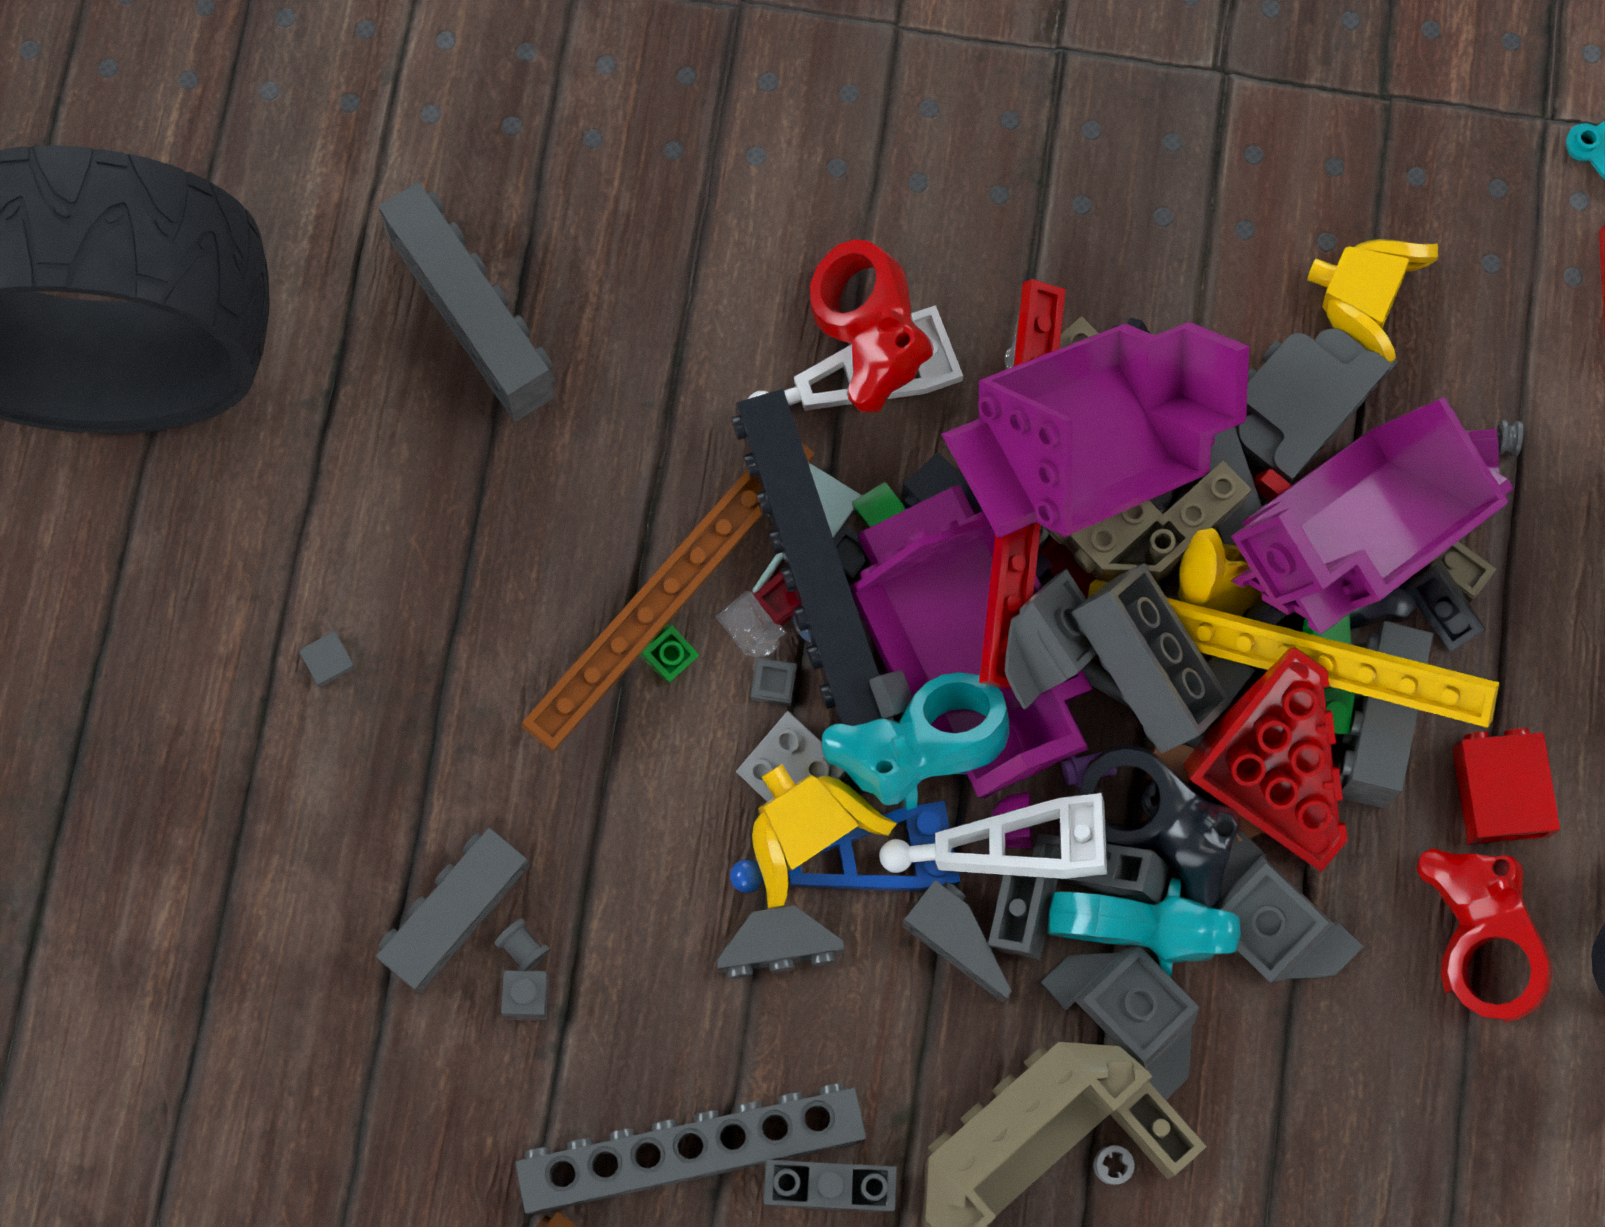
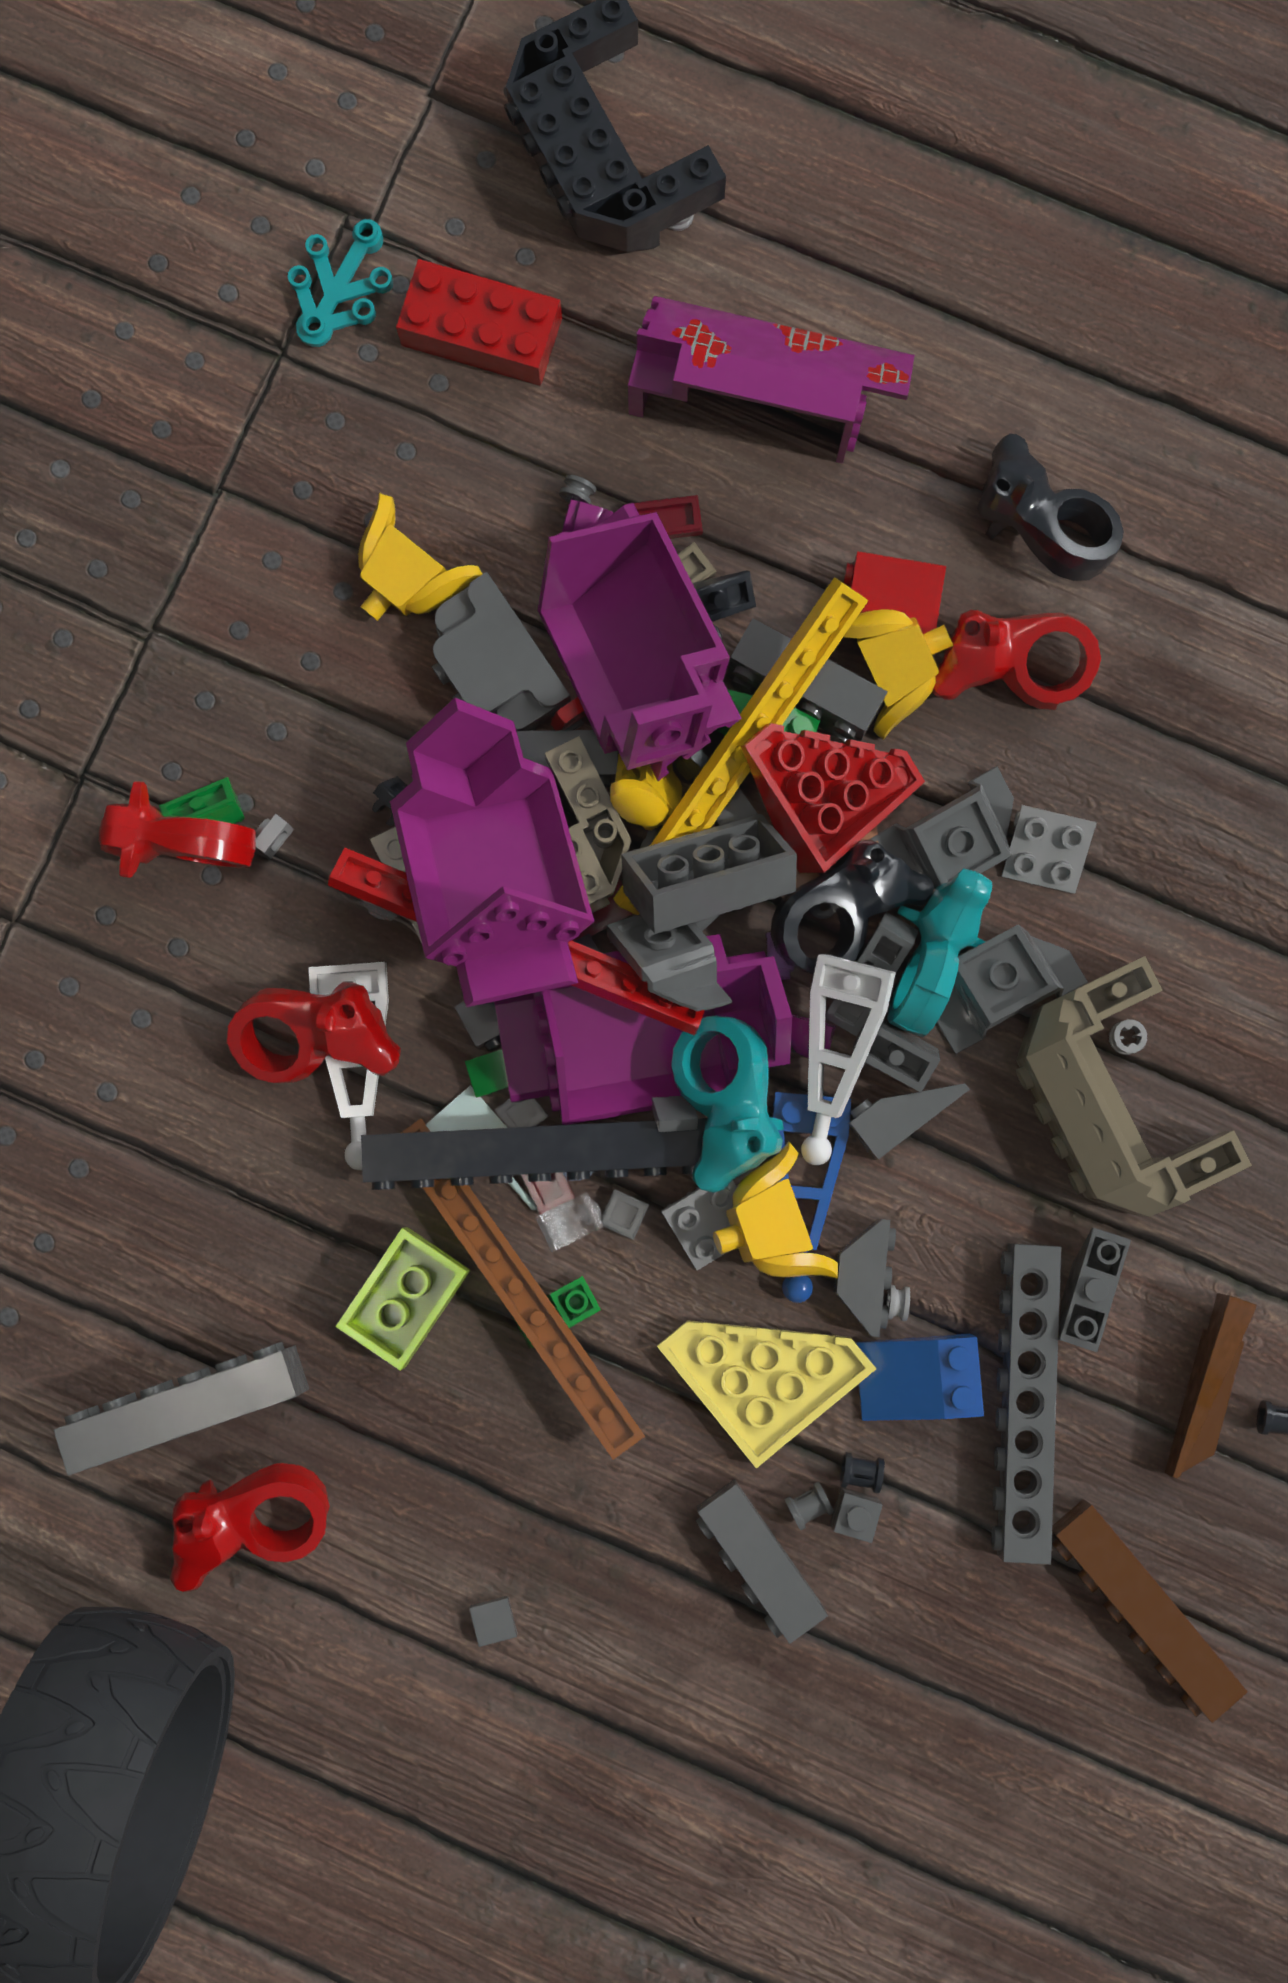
camera: 70 degrees left, 10 degrees up
(364, 368) = (217, 1525): none -> red animal
(570, 993) = (862, 1472): none -> black bush
(630, 481) = (403, 1298): none -> lime brick
(641, 866) = (764, 1380): none -> light yellow plate
(685, 1028) = (922, 1379): none -> blue slope
(758, 985) = (898, 1302): none -> light grey bush
(1020, 111) = (142, 833): none -> red animal
(1056, 237) = (272, 835): none -> light grey plate
(1059, 168) = (210, 802): none -> green slope
(1291, 1023) = (1048, 848): none -> light grey hinge
(1442, 800) = (899, 661): none -> yellow torso
(1513, 538) = (678, 515): none -> dark red tile

